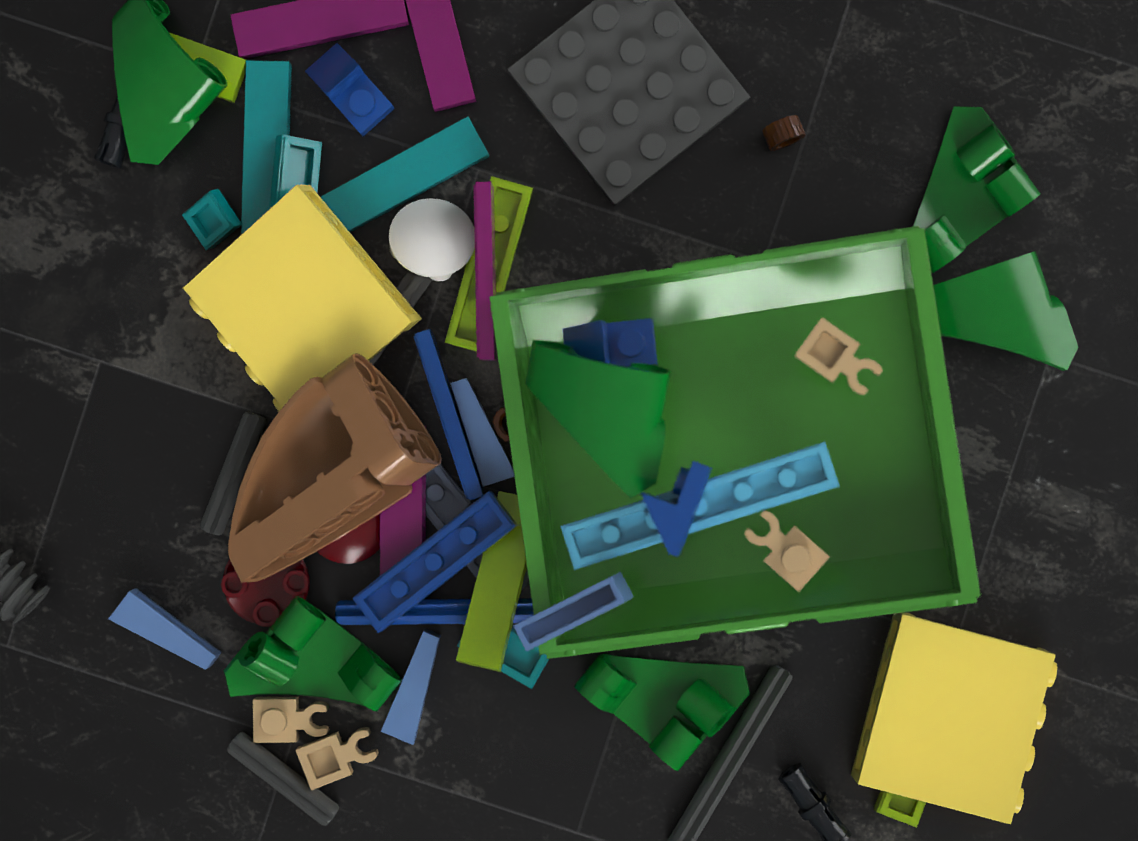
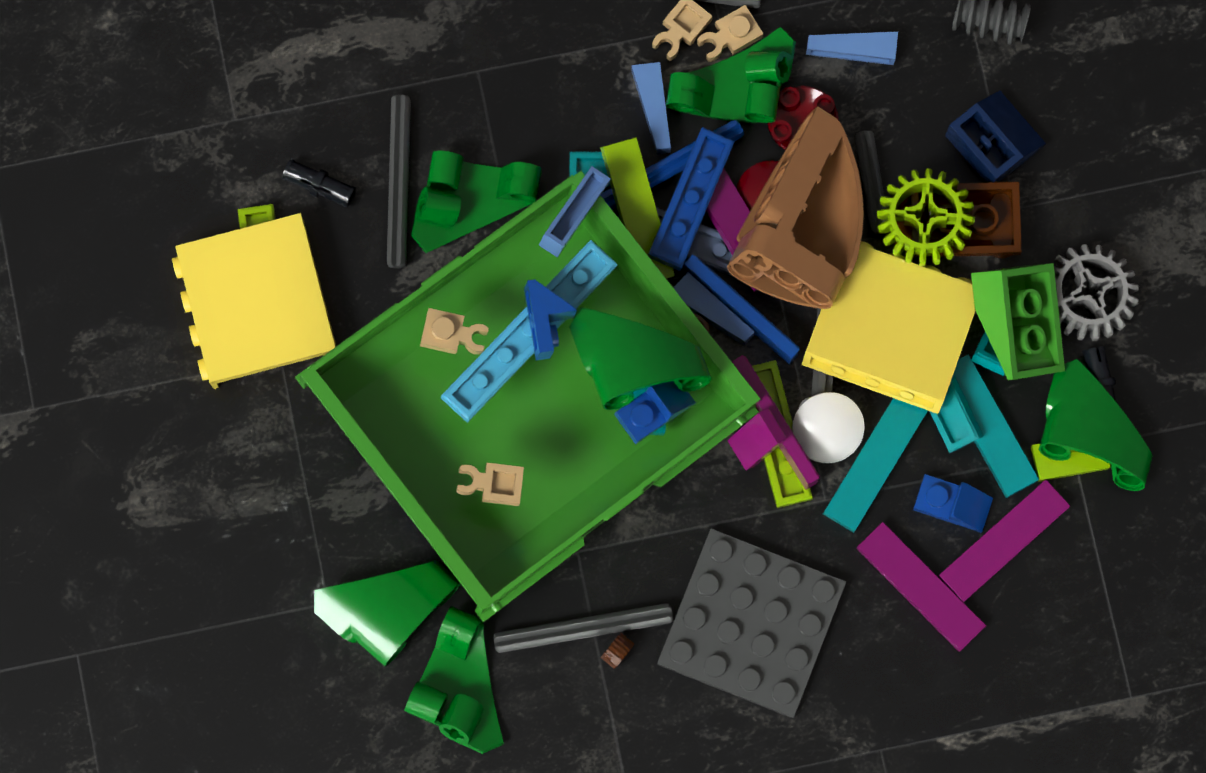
camera: 150 degrees right, 10 degrees down
(74, 206) = (1095, 306): none -> light grey gear
(75, 443) = (994, 137): none -> dark blue slope
(161, 231) = (1021, 318): none -> bright green slope
(165, 377) = (995, 225): none -> reddish brown slope
(166, 374) = (941, 220): none -> lime gear
(514, 263) = (757, 439): none -> magenta tile
(804, 178) = (583, 627): none -> dark grey axle

